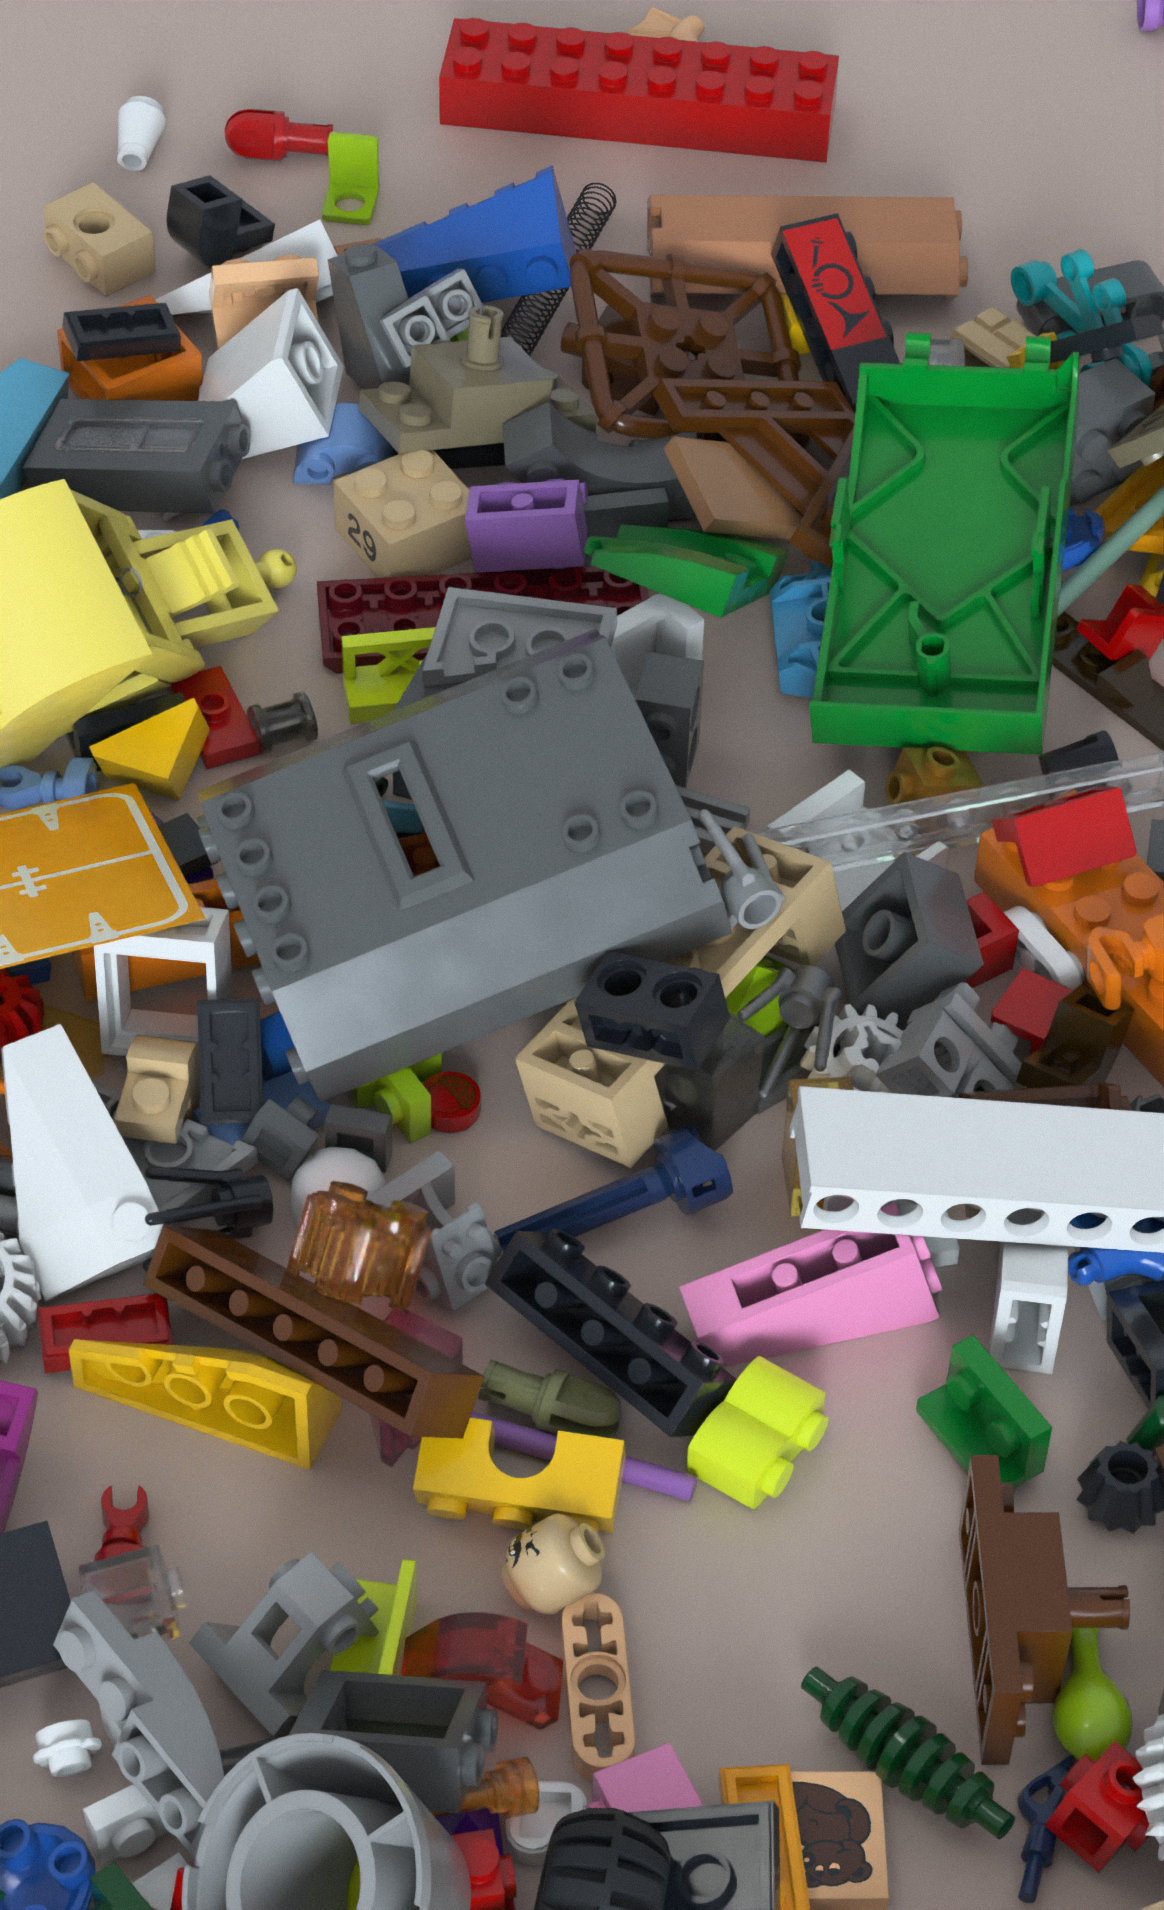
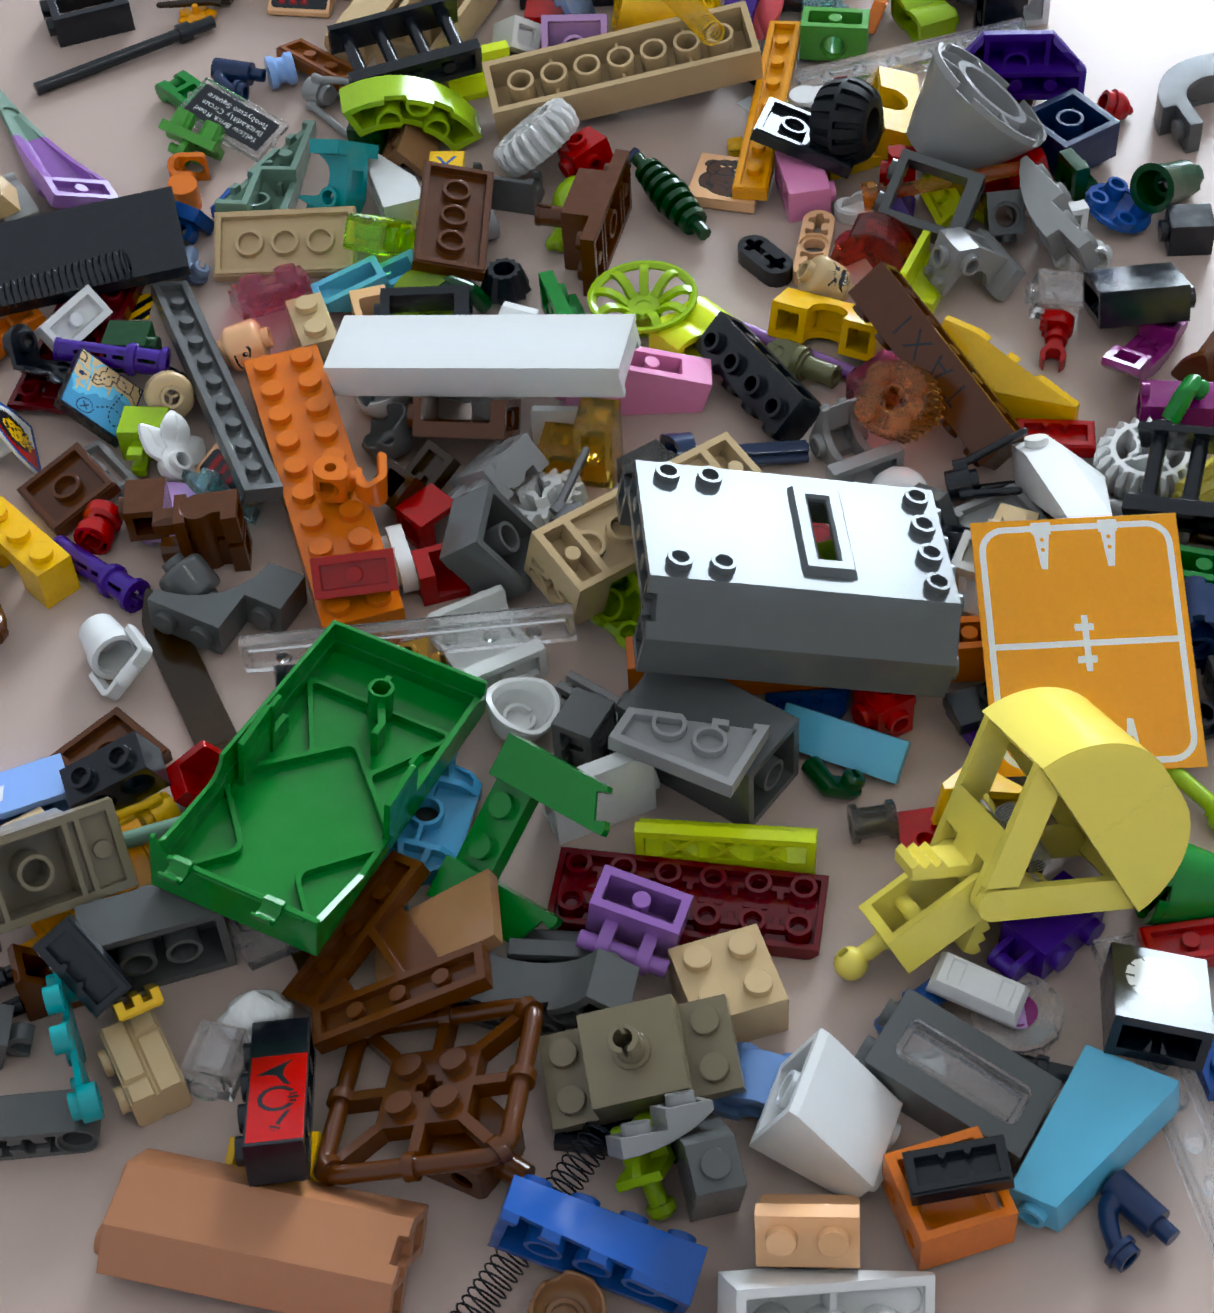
camera: 160 degrees left, 0 degrees up
(652, 1010) = (684, 439): black brick -> none
(684, 1639) = (765, 261): none -> black beam
(746, 891) = (600, 512): light grey plant -> none
(770, 758) = (522, 707): none -> white helmet
(856, 1457) = (645, 304): none -> lime wheel

